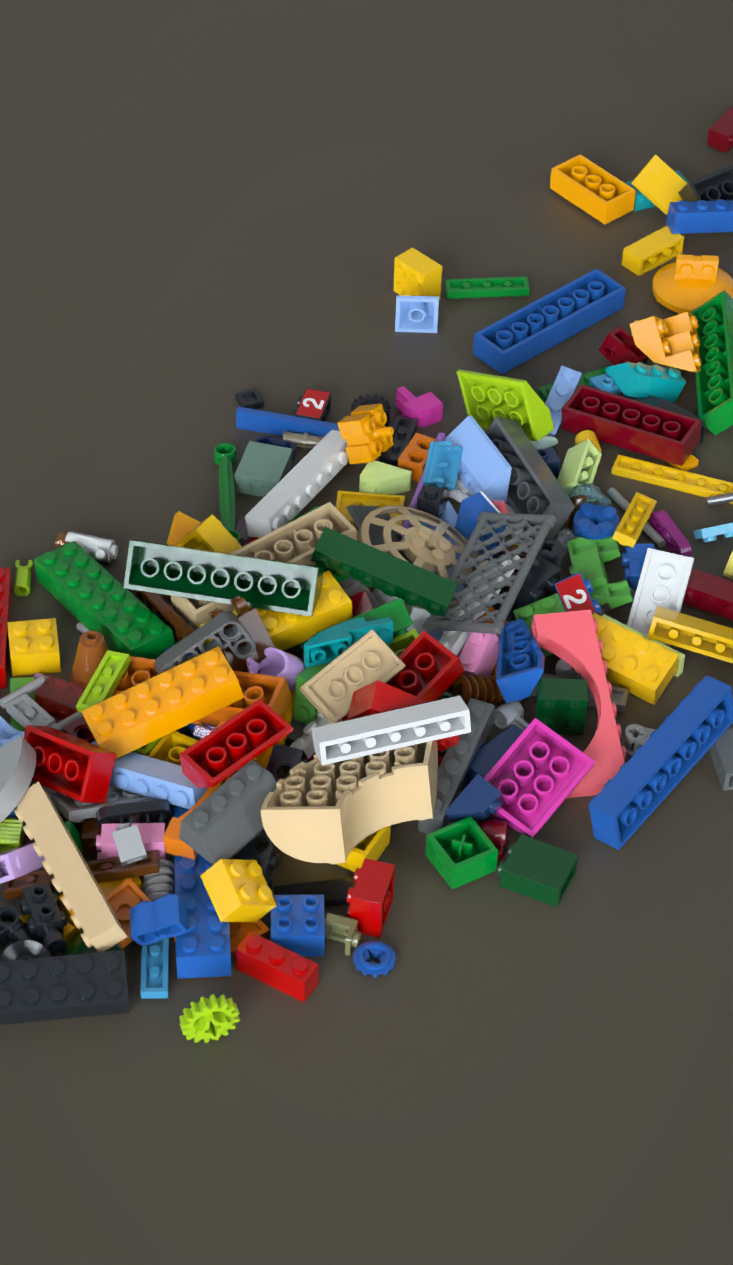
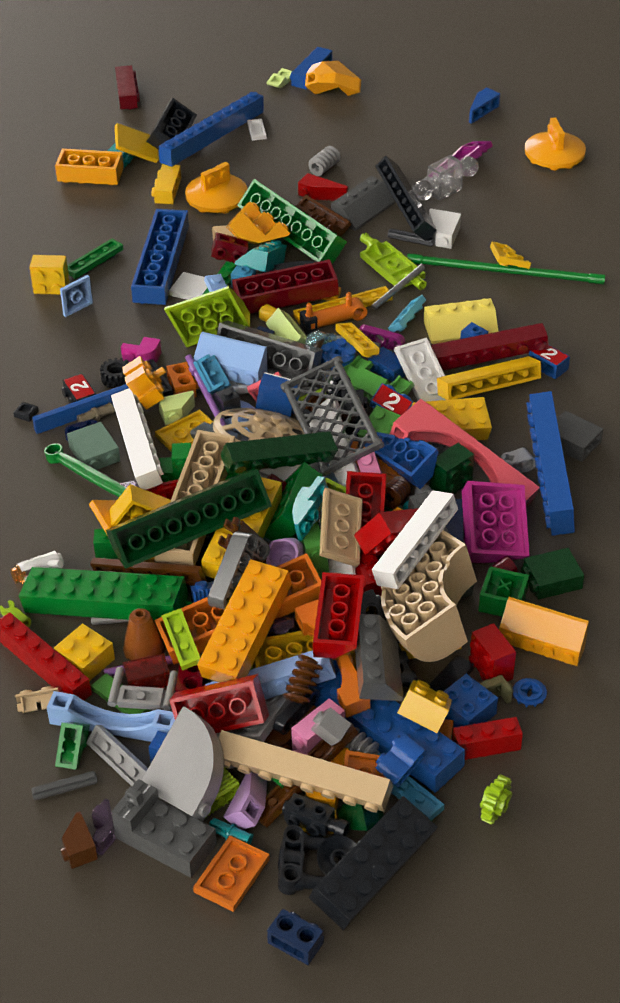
camera: 40 degrees left, 0 degrees up
(150, 787) = (302, 679): none -> reddish brown piece
(449, 913) = (544, 631): none -> light orange slope
(476, 800) = (484, 553): dark blue slope -> none
(543, 369) = (188, 286): none -> white tile
(677, 489) = (351, 309): none -> orange piece

